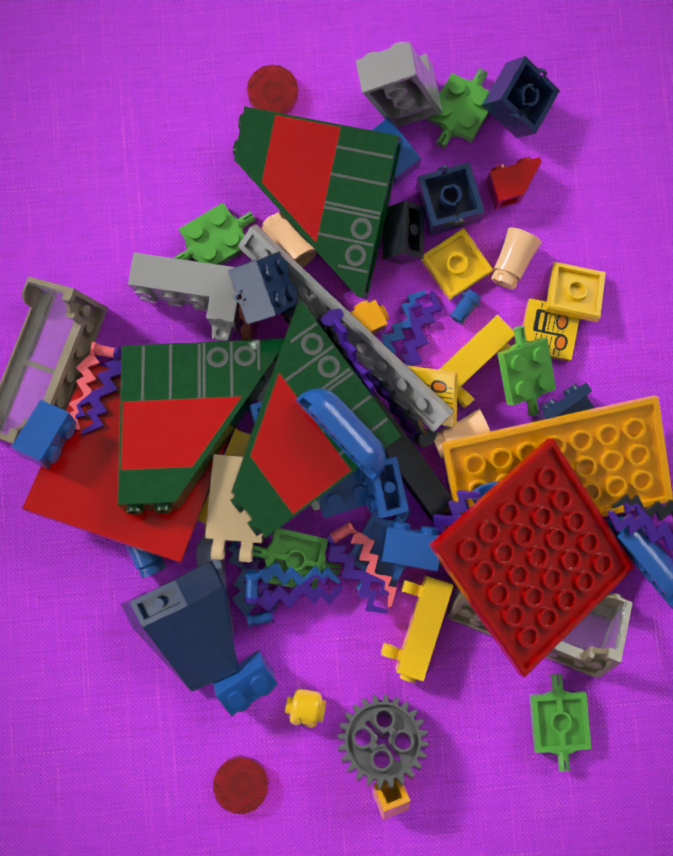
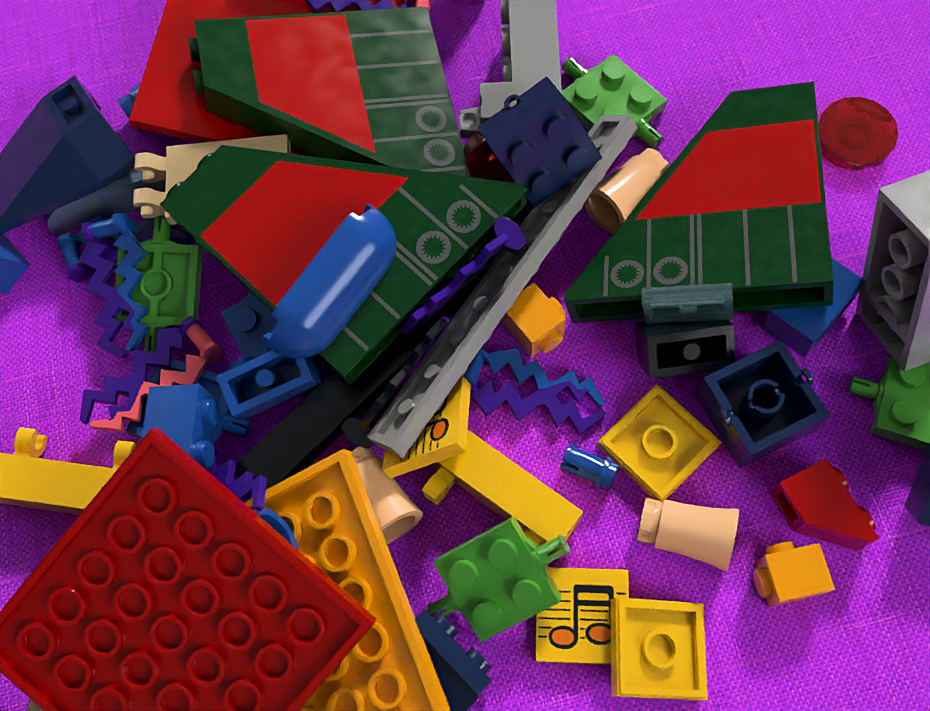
camera: 90 degrees right, 15 degrees down
(385, 223) = (688, 303): none -> clear light blue tile
(547, 209) = (792, 573): none -> light orange brick

